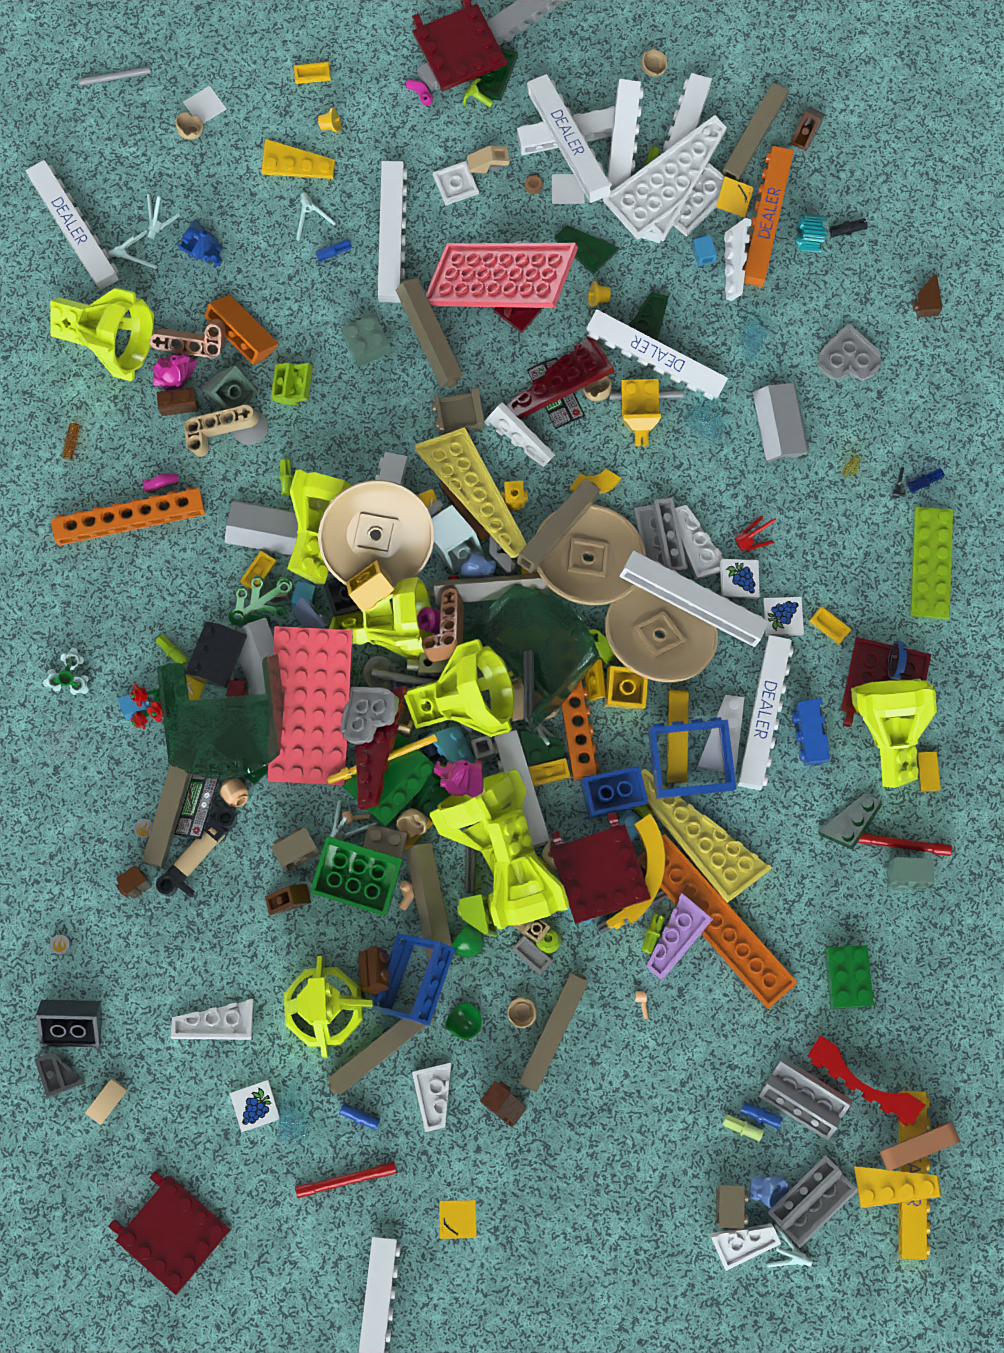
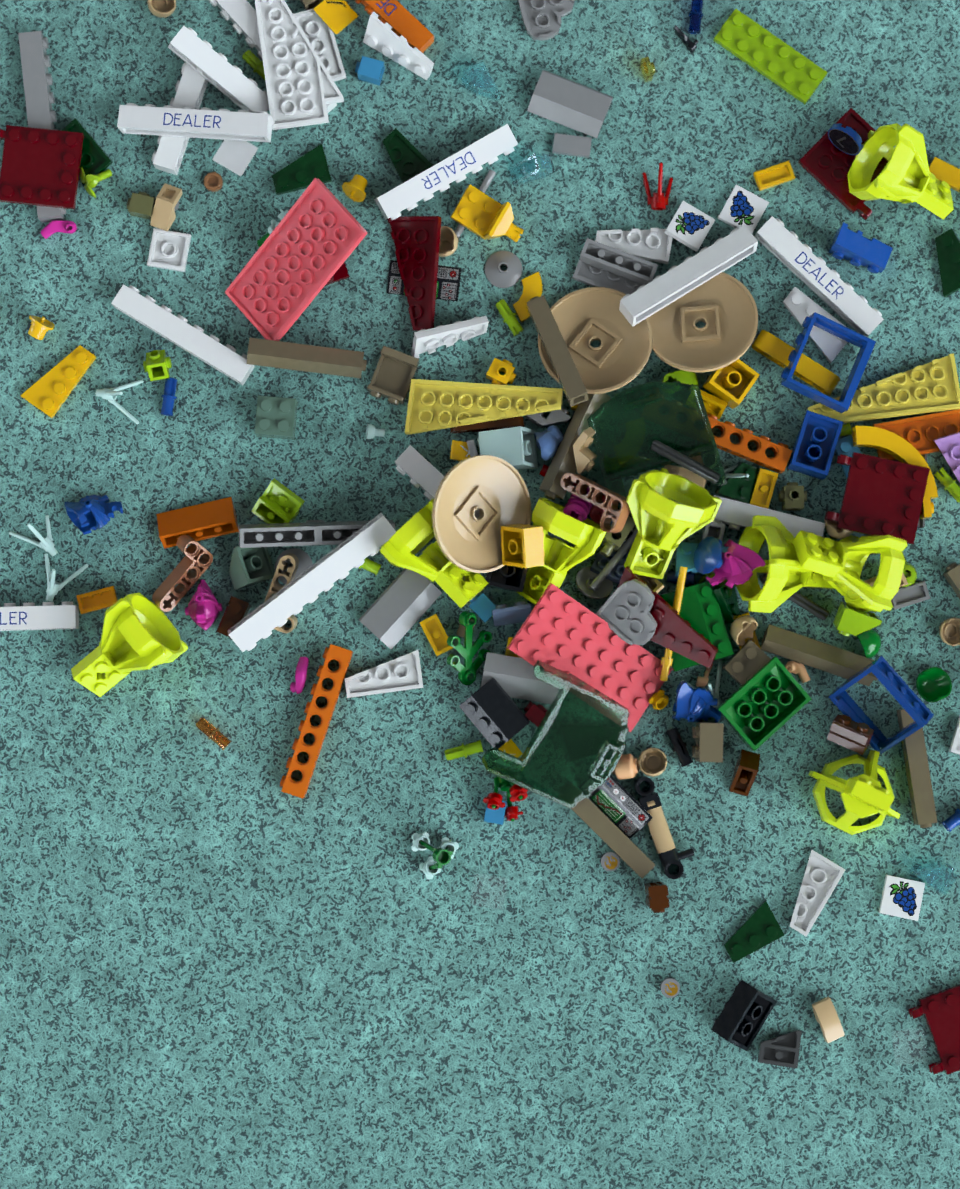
camera: 65 degrees left, 10 degrees up
(126, 282) = (97, 599): none -> light orange plate
(150, 992) = (754, 934): none -> dark green wing
(203, 557) = (392, 676): none -> white wing
(236, 438) = (311, 583): none -> white brick
(251, 813) = (652, 762): none -> tan hair
(281, 416) = (298, 534): none -> light grey hinge
(287, 818) = (679, 746): none -> black pin
(310, 789) = (659, 700): none -> yellow plate
(321, 817) = (694, 704): none -> blue helmet
(353, 225) = (157, 365): none -> lime brick
(401, 423) = (371, 432): none -> light aqua piece
(458, 750) = (708, 555): none -> blue dish
(477, 139) = (141, 205): none -> olive brick
(481, 597) = (583, 455): none -> tan slope
(556, 806) = (790, 503): none -> olive brick
(567, 477) = (509, 317): none -> lime axle
(604, 458) = (505, 278): none -> light grey dish
(747, 444) = (572, 145): none -> light grey tile

